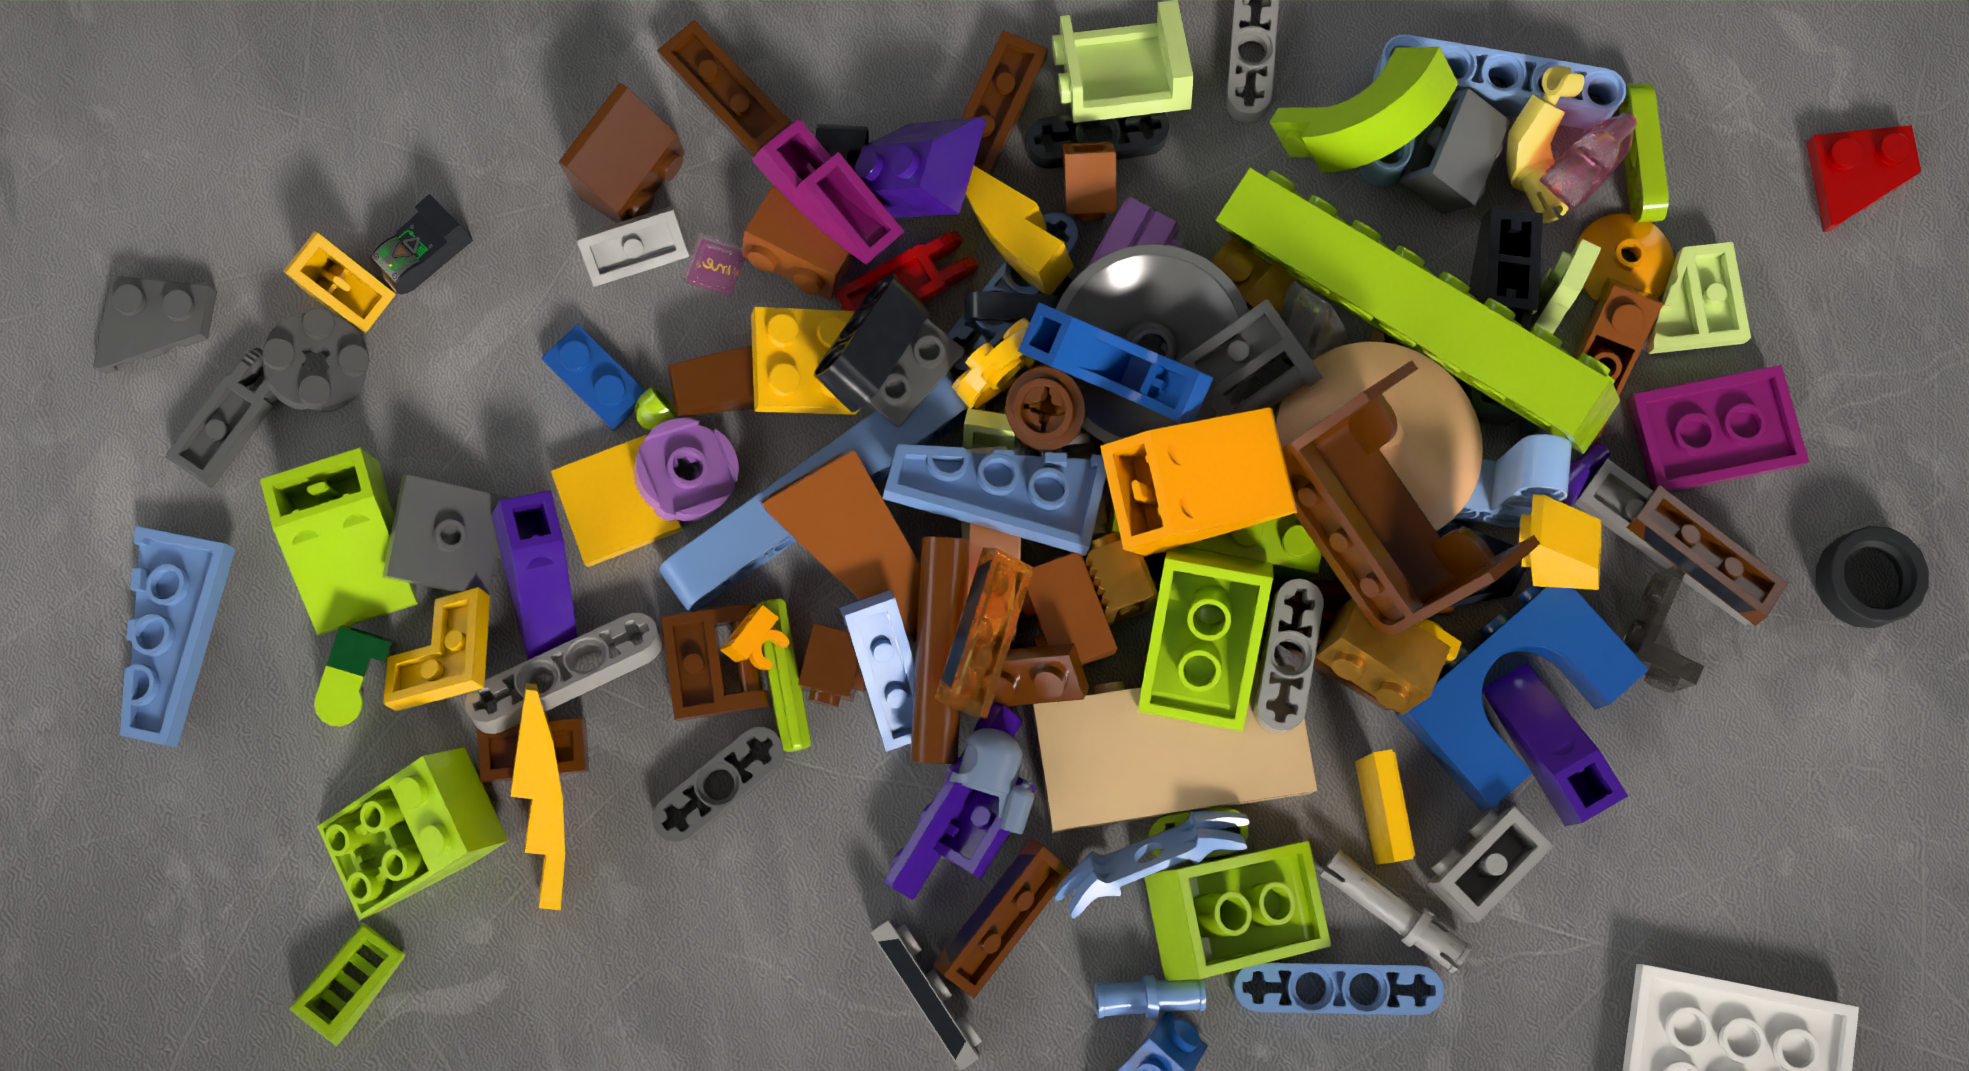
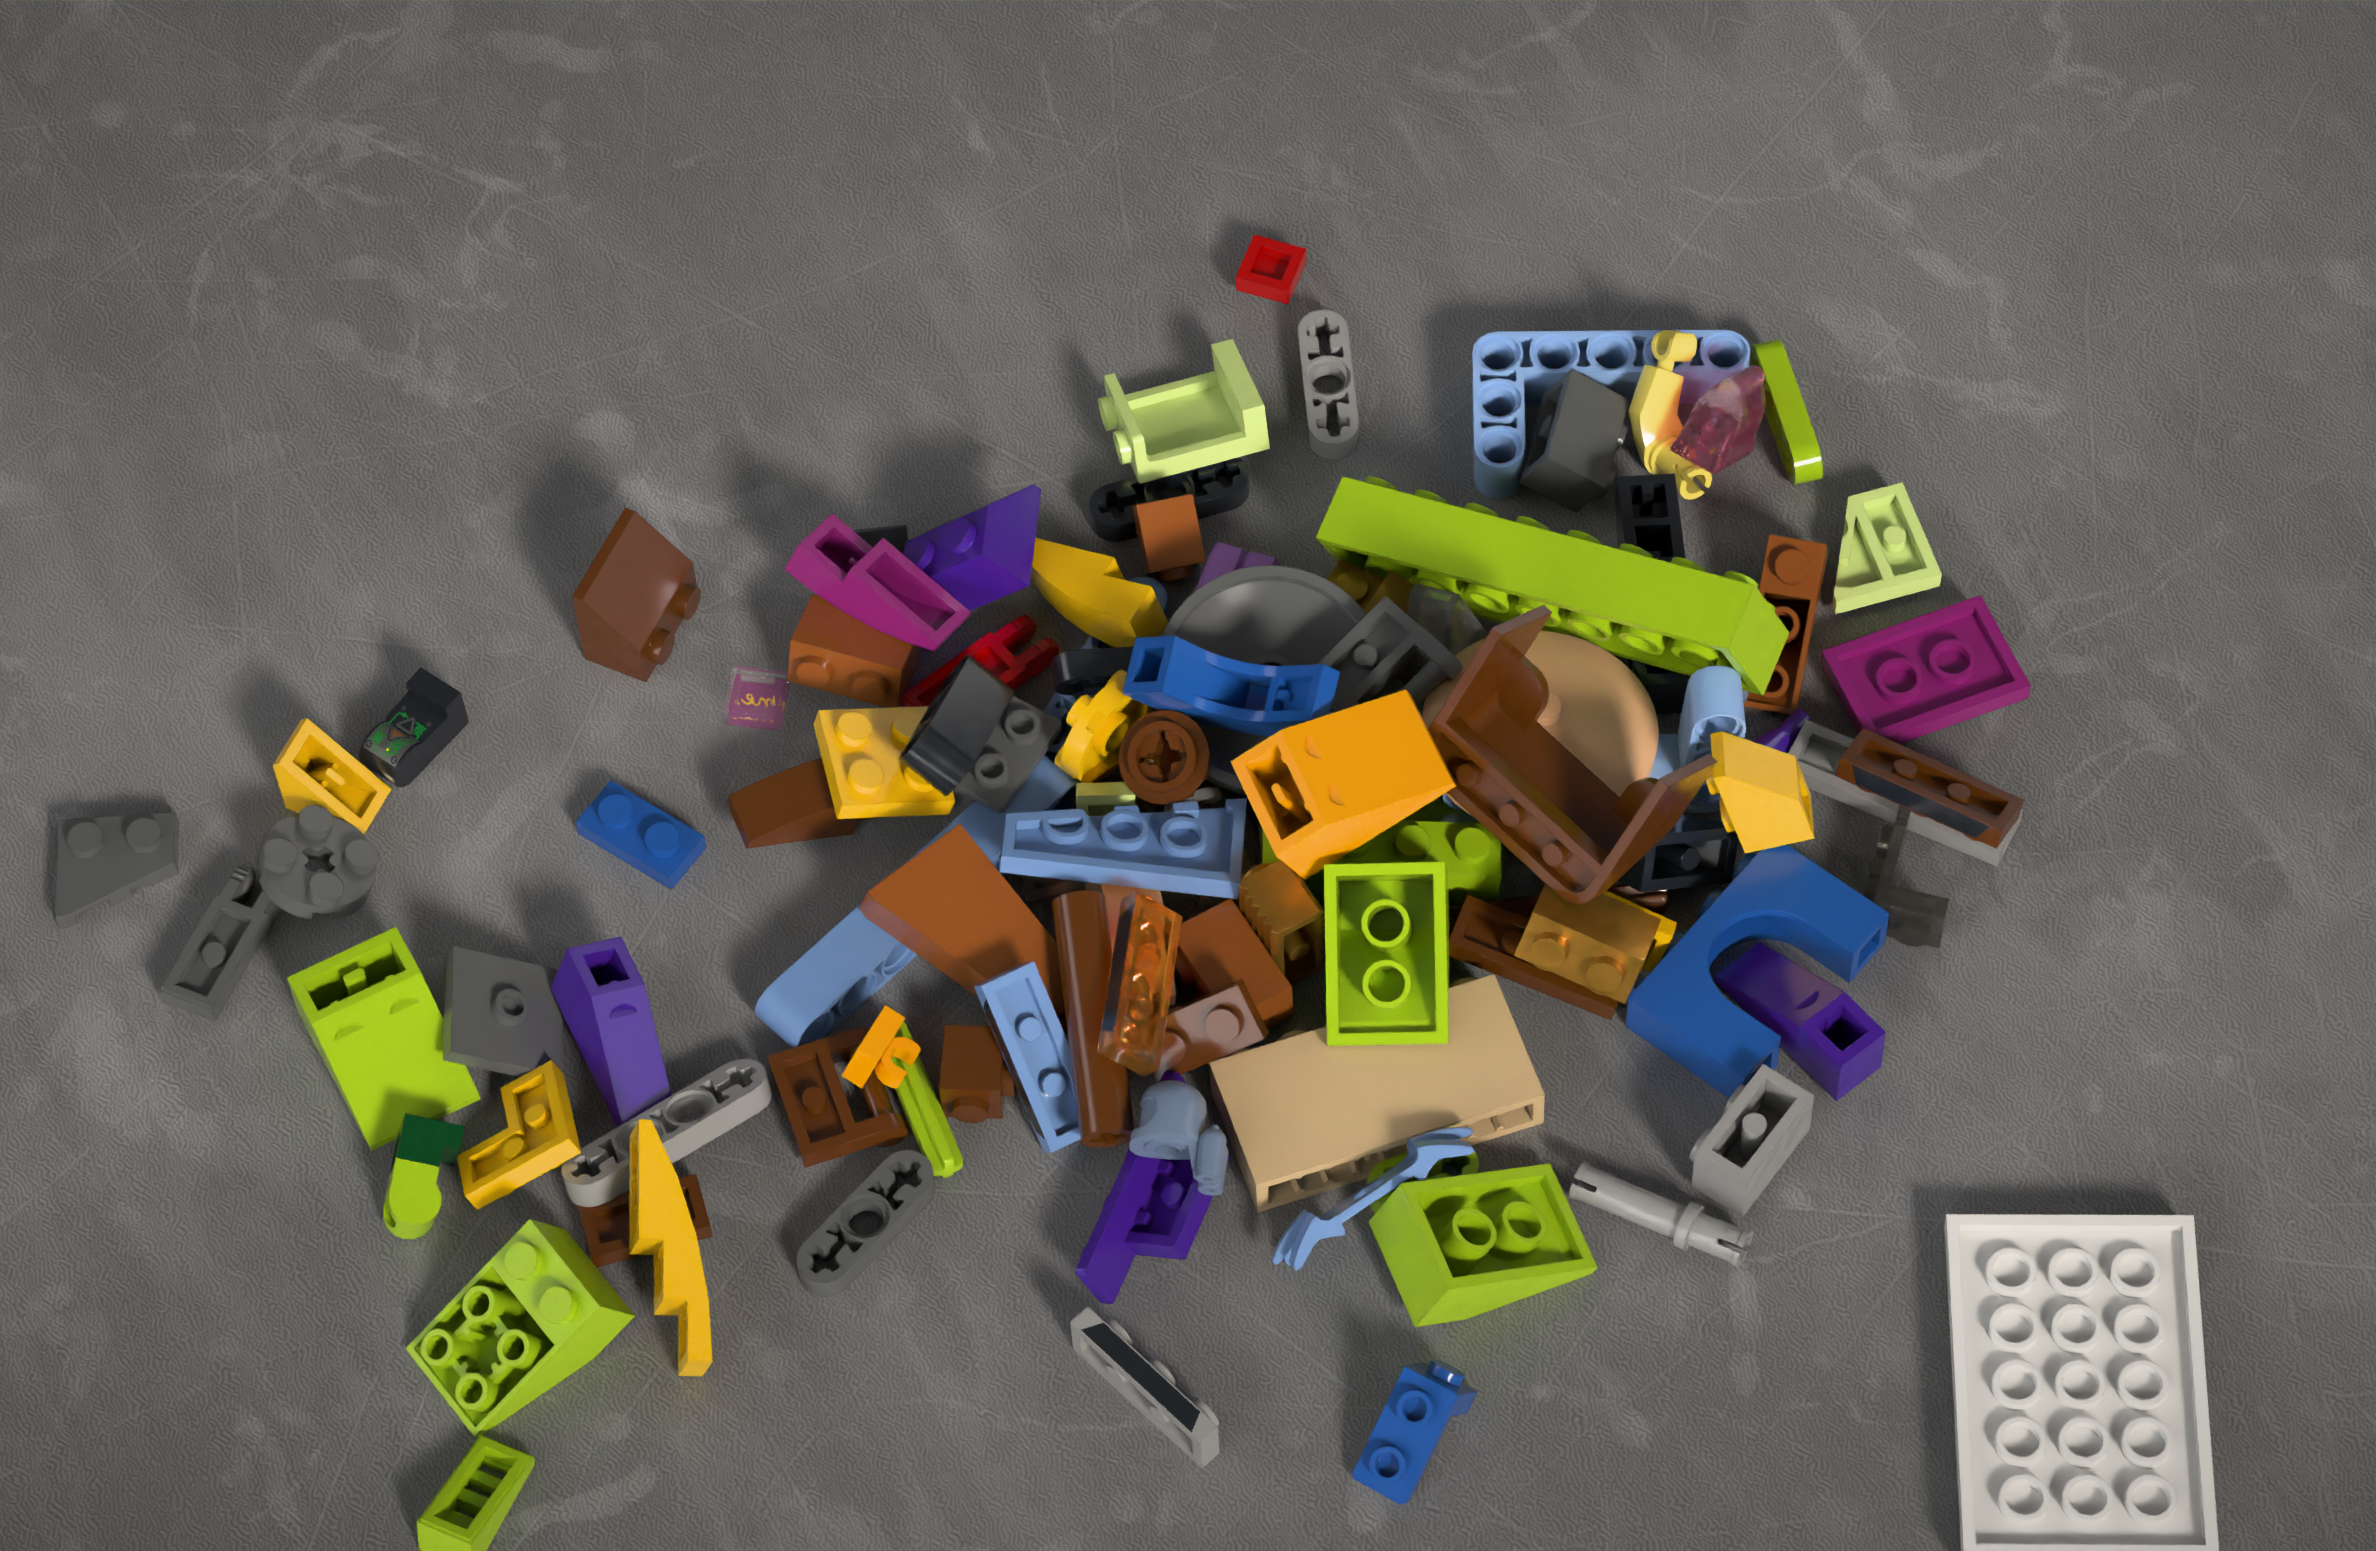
camera: 10 degrees left, 20 degrees down
(175, 611) = (198, 1153): medium blue wing -> none
(606, 505) = (693, 955): yellow tile -> none
(632, 246) = (660, 689): plate -> none
(654, 408) = (717, 853): lime hinge -> none
(673, 495) = (760, 929): medium lavender plate -> none
(723, 88) = (730, 514): reddish brown plate -> none
(1002, 918) = (1216, 1296): reddish brown plate -> none
(1003, 94) = (1056, 465): reddish brown plate -> none
(1149, 997) = (1400, 1348): medium blue pin -> none
(1308, 620) = (1472, 982): light grey beam -> none
(1337, 994) = (1609, 1297): medium blue beam -> none
(1377, 120) = (1472, 417): lime arch -> none
(1385, 807) = (1623, 1099): yellow tile -> none
(1563, 284) = (1720, 534): yellowish green wing -> none
(1643, 239) = (1763, 513): light orange dish -> none
(1859, 169) = (2034, 391): red wing -> none
(1899, 549) = (2133, 753): black tyre -> none

